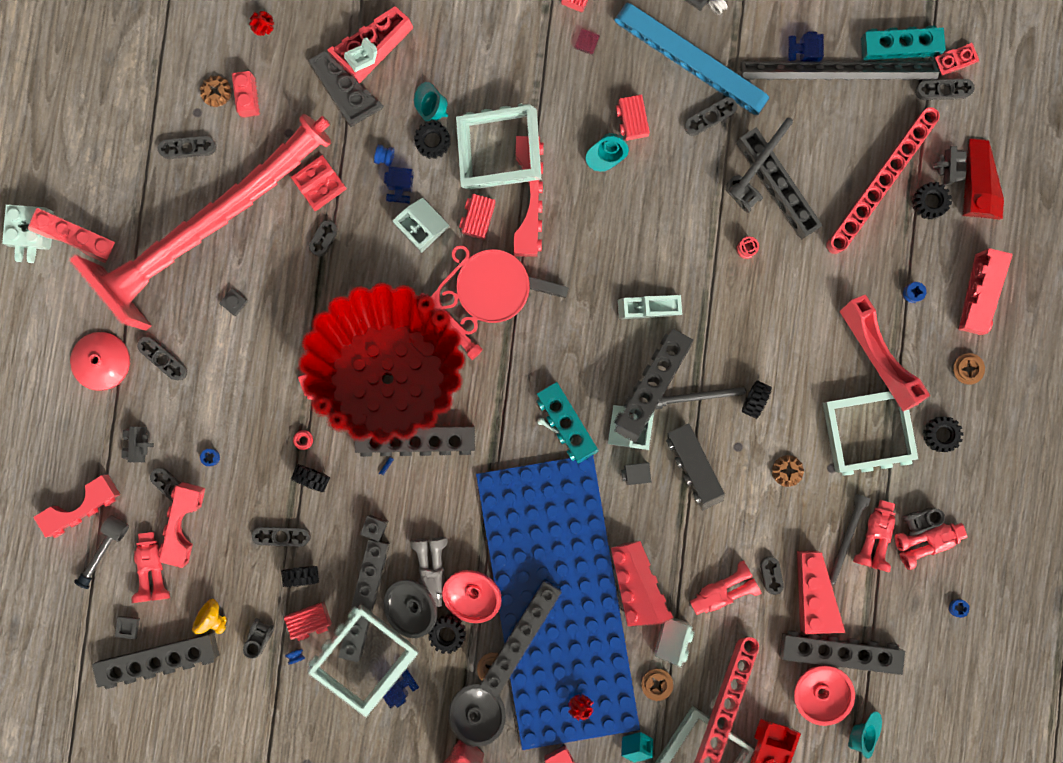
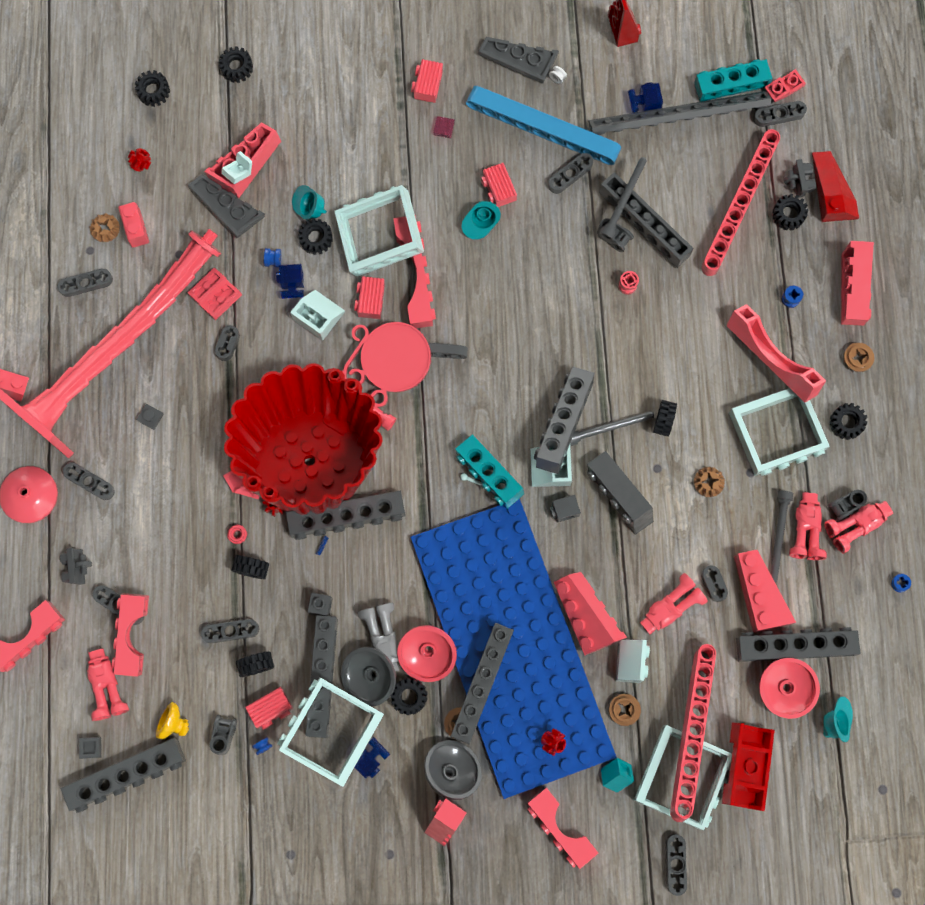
camera: 10 degrees left, 10 degrees down
(113, 530) = (64, 653): dark grey piece -> none
(216, 458) = (142, 567): blue bush -> none
(649, 307) = (547, 352): light aqua slope -> none

